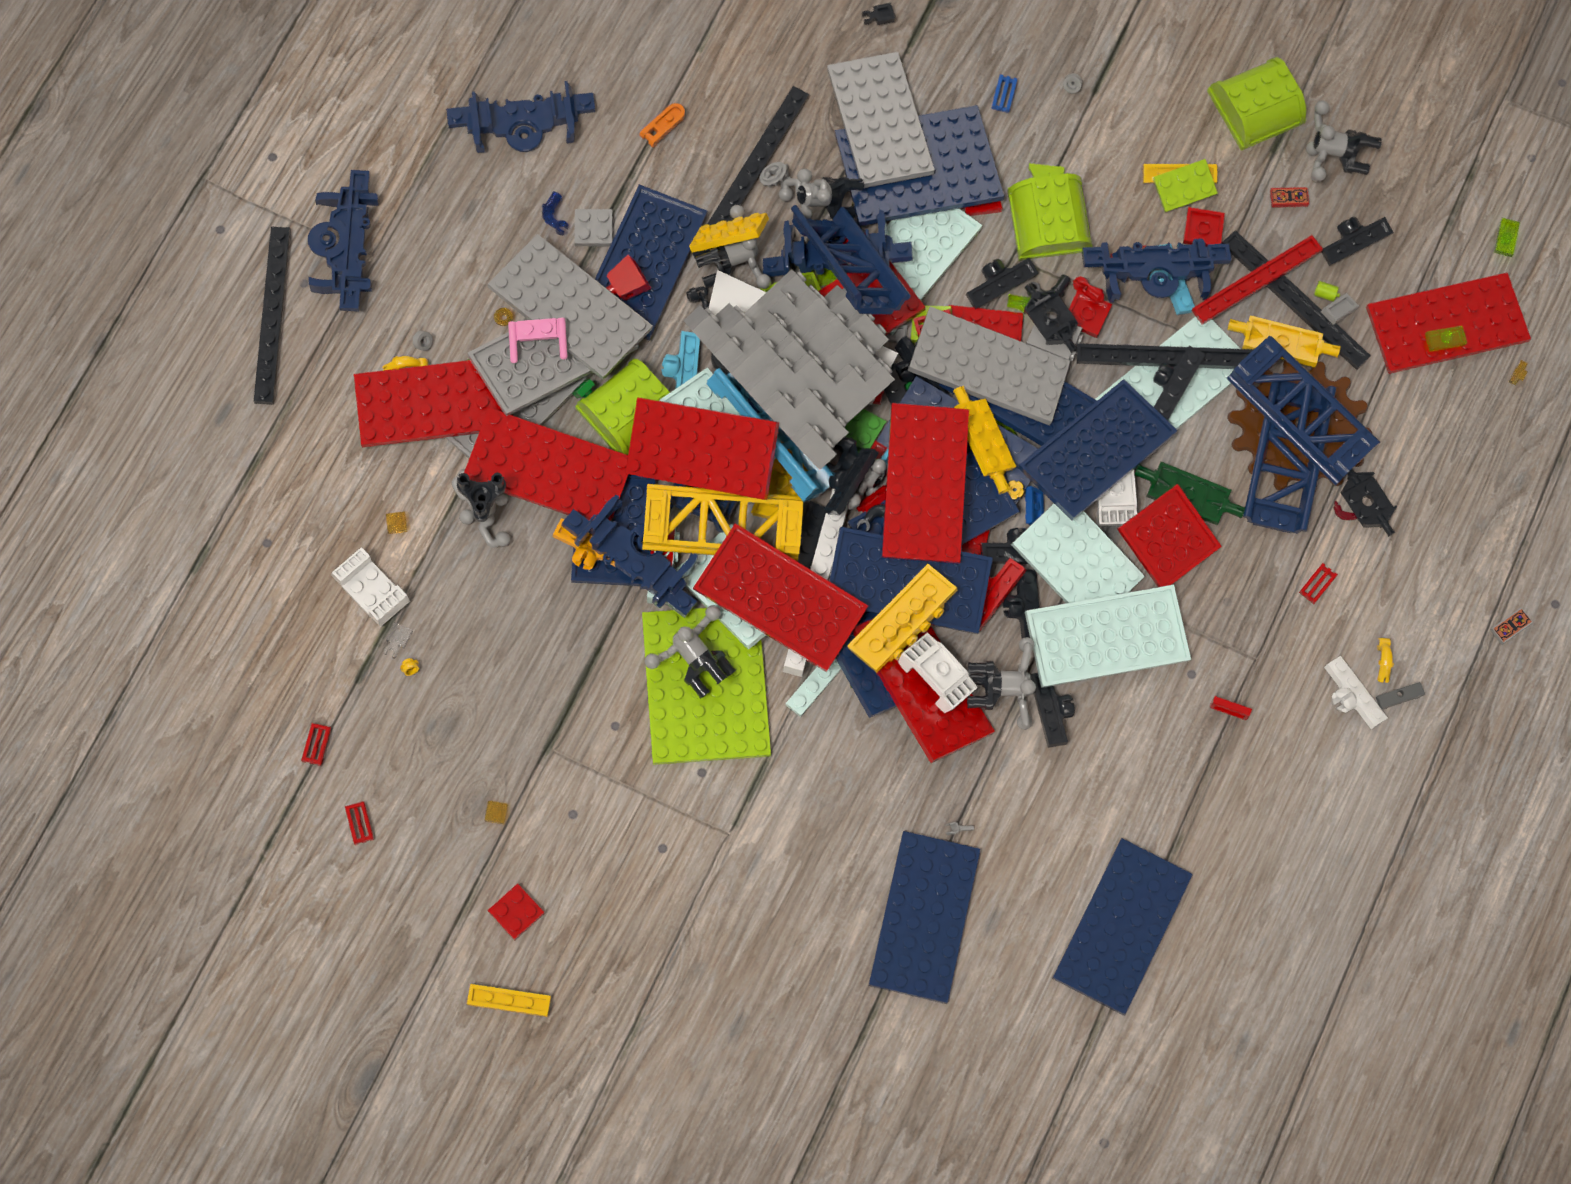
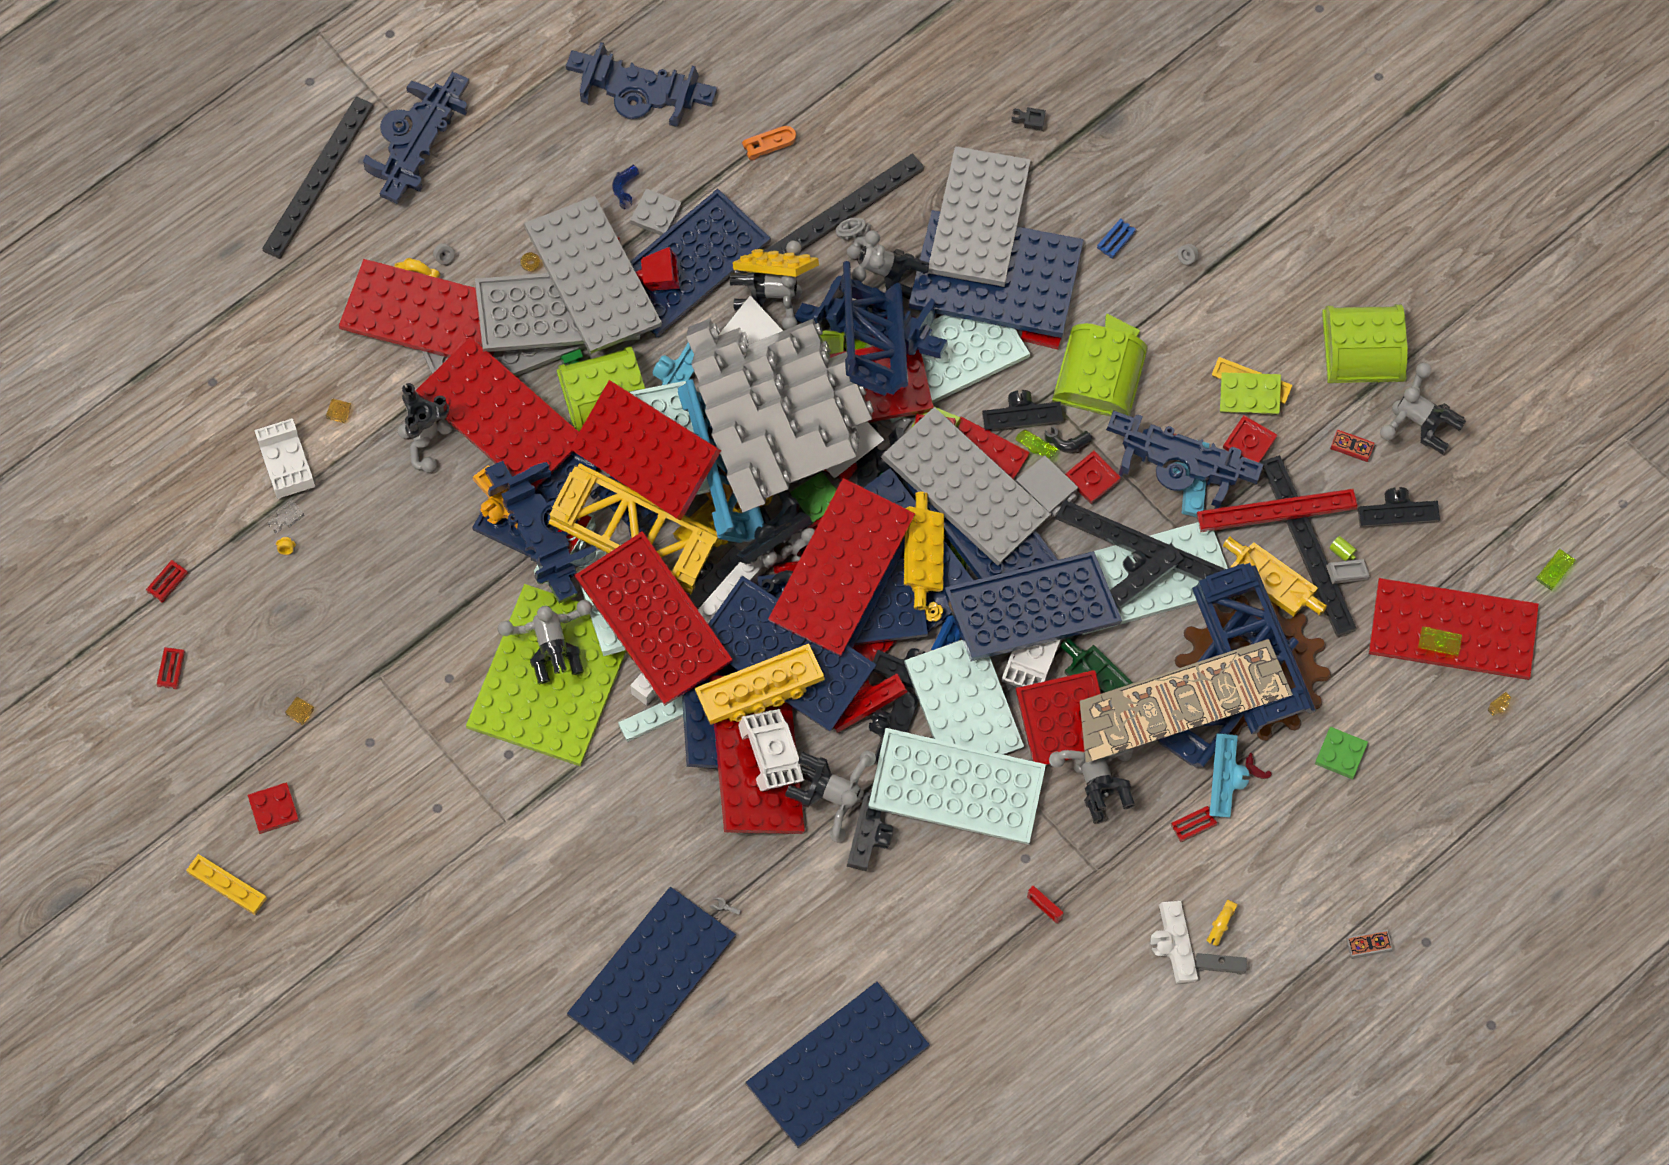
camera: 30 degrees right, 5 degrees down
(537, 330) = (548, 283): bright pink plate -> none
(692, 296) = (718, 312): black piece -> none
(1054, 330) = (1050, 479): black plate -> none
(1095, 294) = (1106, 459): red piece -> none
(1225, 577) = (1098, 780): none -> wheel
(1268, 480) = (1181, 699): none -> sticker
(1329, 529) = (1226, 775): none -> medium azure plate
(1364, 485) = (1284, 749): black plate -> none
(1409, 469) = (1341, 753): none -> bright green plate

